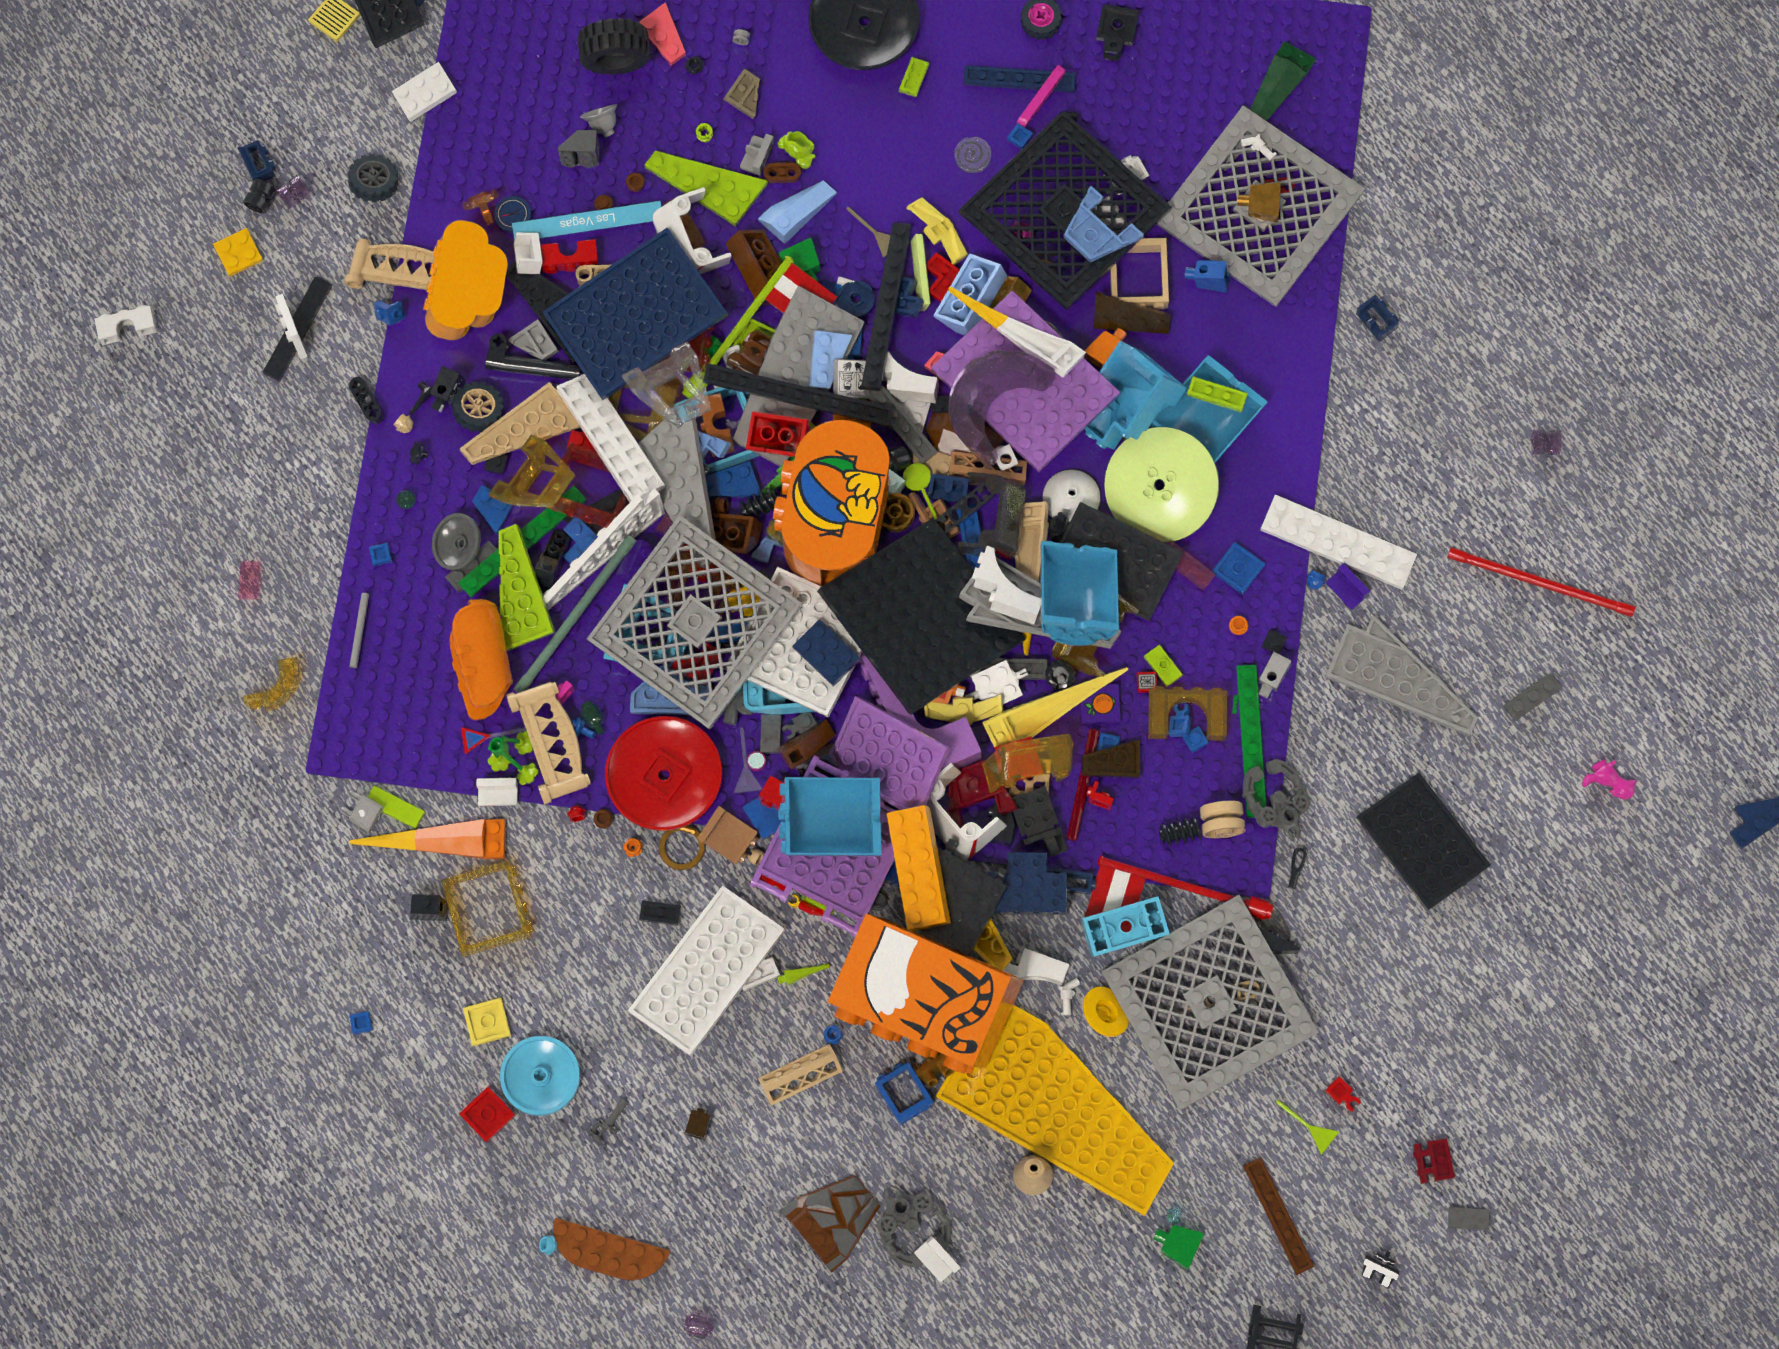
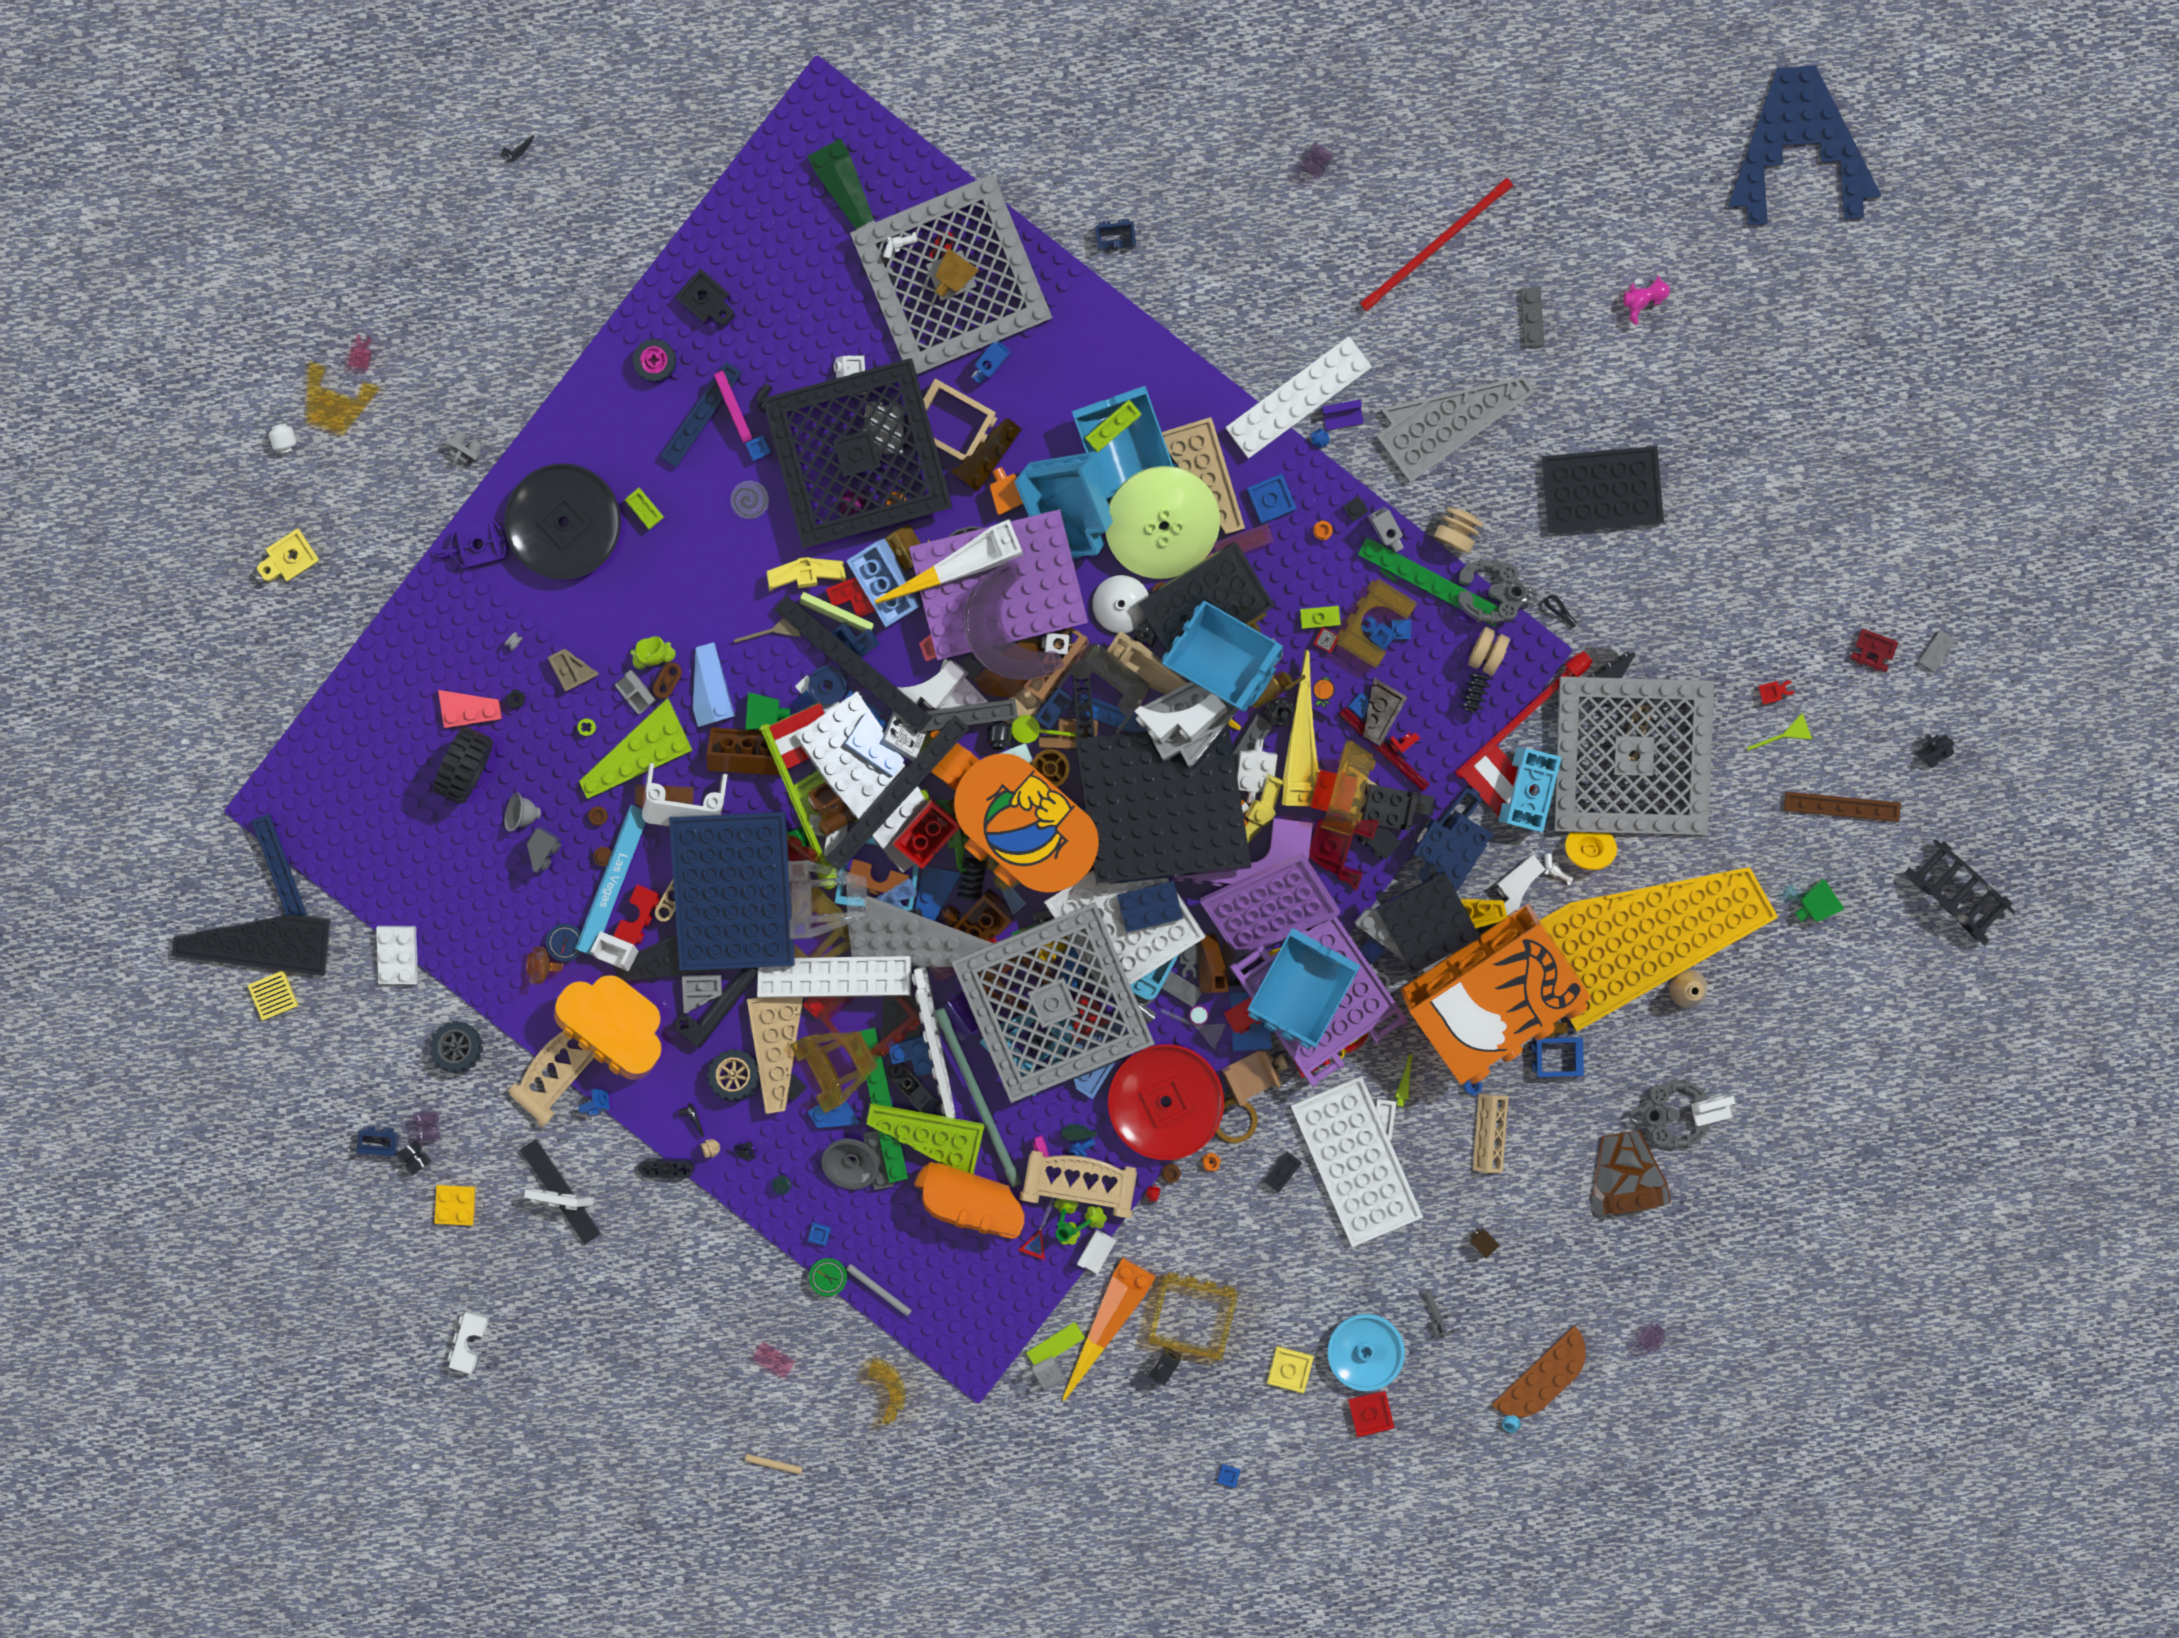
camera: 60 degrees left, 15 degrees up
(156, 631) = (773, 1464): none -> tan bar
(346, 582) = (828, 1277): none -> green tile
(446, 381) = (696, 1087): black torso -> none
(918, 868) = (1386, 938): light orange brick -> none
(970, 836) = (1359, 889): white windscreen -> none
(1092, 236) = (898, 446): medium blue wing -> none
(1240, 485) = (1199, 452): none -> tan wing
(1311, 736) = (1458, 529): none -> tan wheel

